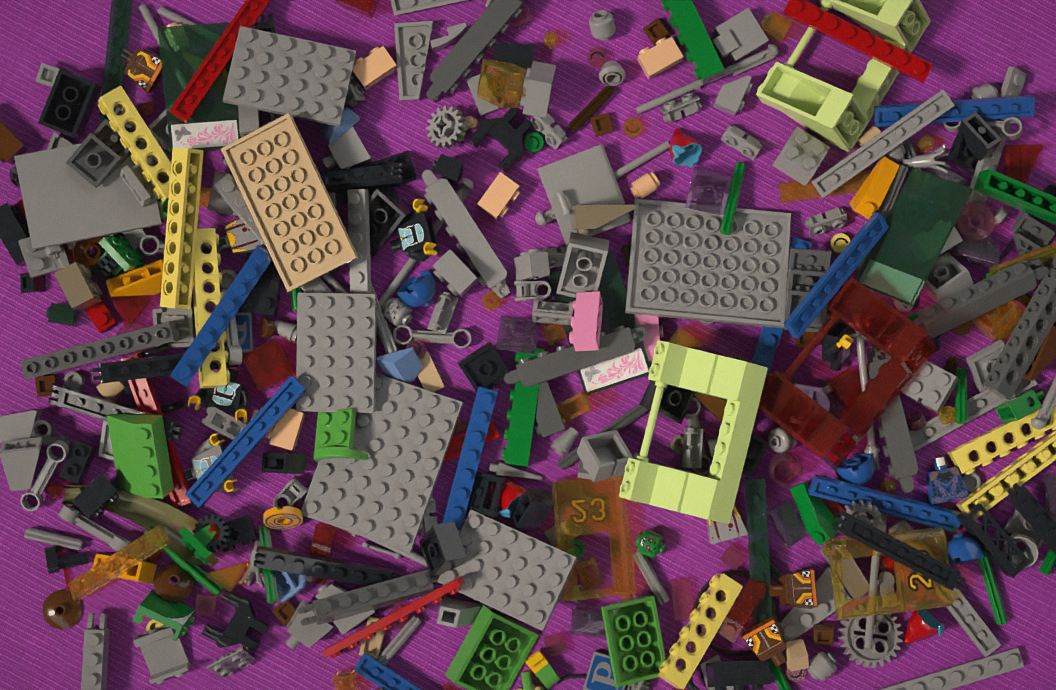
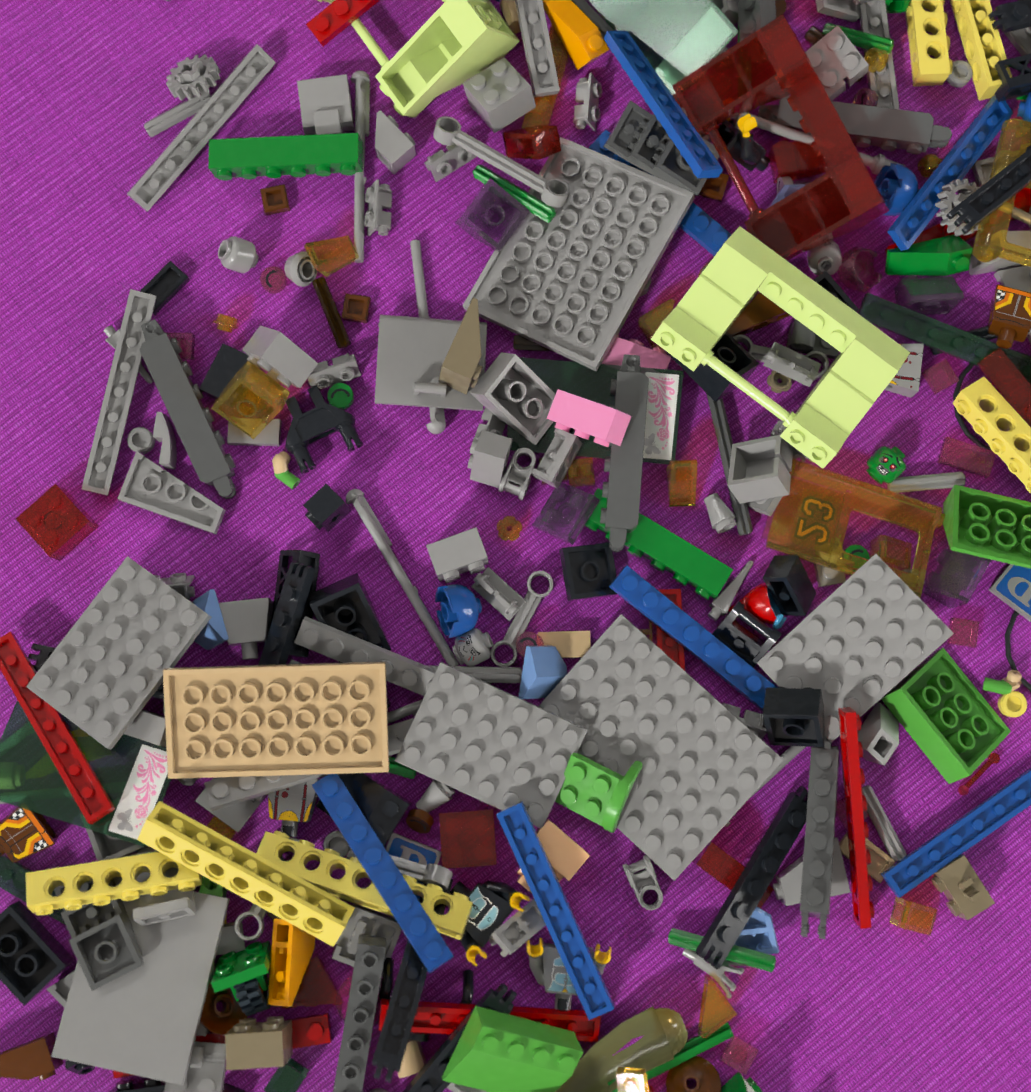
camera: 70 degrees left, 5 degrees down
(147, 108) = (74, 853): clear red plate -> none
(208, 537) = (657, 1012): plate -> none
(227, 664) = (825, 1039): light grey hinge -> none
(239, 625) = (788, 1027): black connector -> none
(246, 529) = (654, 990): black brick -> none
(283, 463) = (600, 874): black slope -> none
(284, 518) = (672, 904): light orange tile -> none
(285, 611) = (790, 953): reddish brown tile -> none
(305, 634) = (820, 949): light grey torso -> none
(374, 67) = (159, 546): light nougat brick -> none
(395, 554) = (774, 781): light grey hinge -> none
(416, 235) = (389, 582): black torso -> none
(442, 19) = (141, 440): none -> light grey tile
(446, 127) = (273, 490): light grey gear -> none
(466, 232) = (412, 521): light grey hinge -> none
(499, 196) = (386, 463): light nougat brick -> none
(542, 669) = (987, 660): leg -> none
(547, 415) = (682, 519): dark grey slope -> none
(631, 90) = (331, 254): none -> clear yellow slope
(632, 127) = (376, 274): clear yellow tile -> none
(645, 185) = (452, 287): light nougat brick -> none
(660, 57) = (307, 206): light nougat brick -> none
(684, 149) = (430, 223): dark azure hat -> none
(749, 179) = (553, 191): none -> light grey piece
(775, 26) = (333, 60): clear yellow brick -> none
(775, 195) = (532, 142): none -> clear red slope
(839, 242) = (618, 98): light yellow tile -> none
(944, 483) = (951, 100): torso -> none

